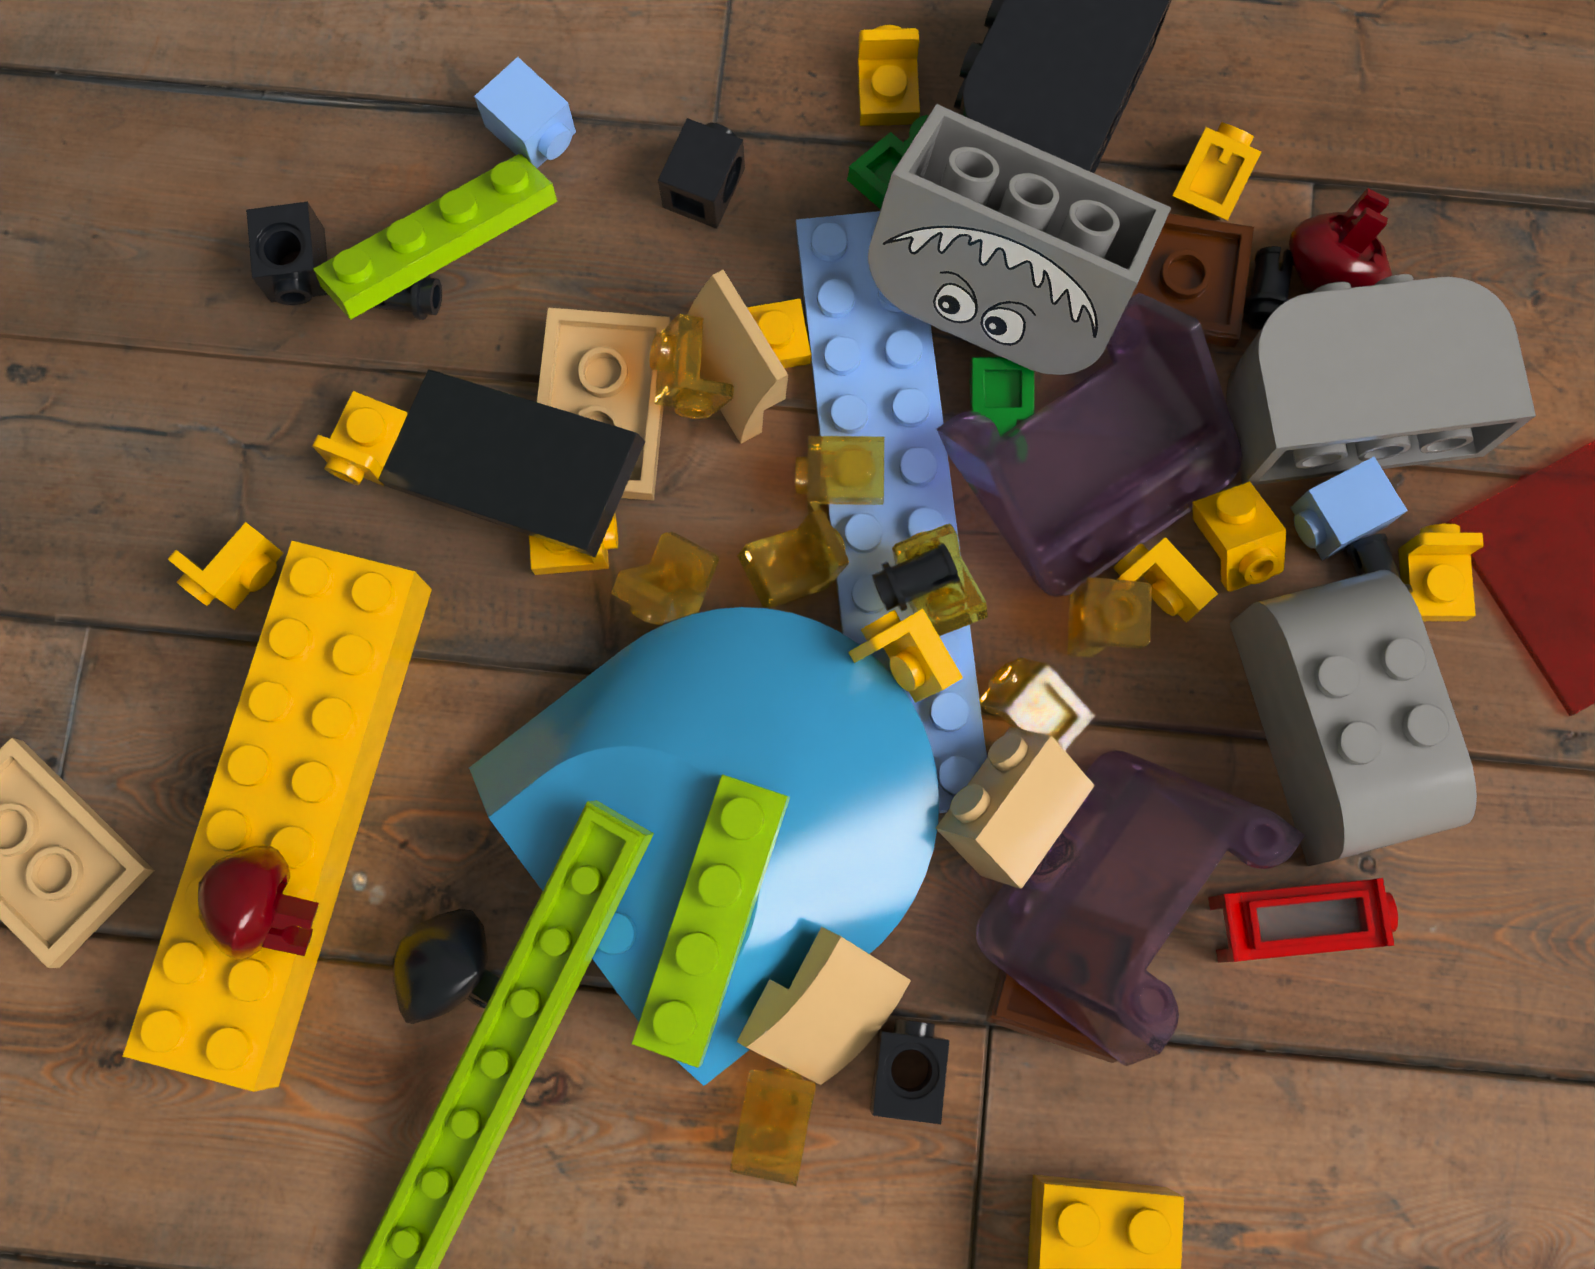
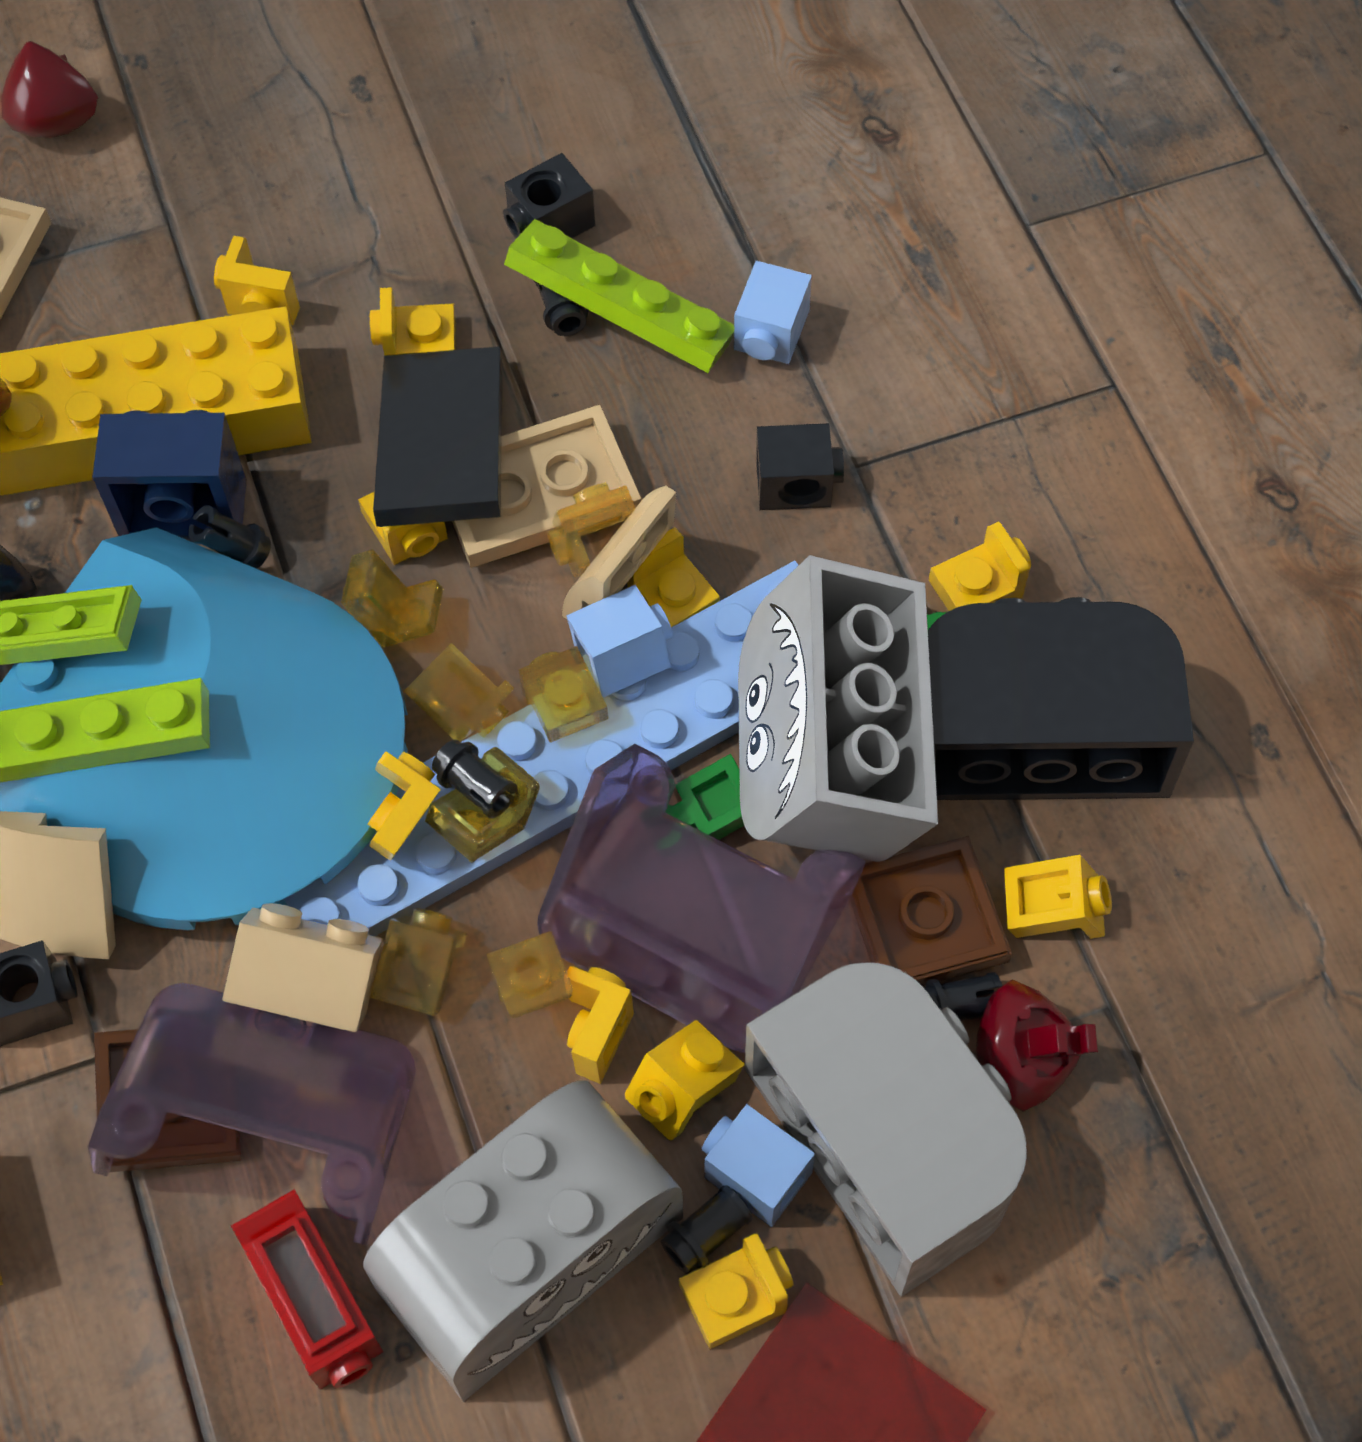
camera: 65 degrees right, 15 degrees down
(429, 725) = (166, 468): none -> dark blue brick
(525, 695) = (231, 538): none -> black pin
(824, 392) = (621, 639): none -> light blue brick

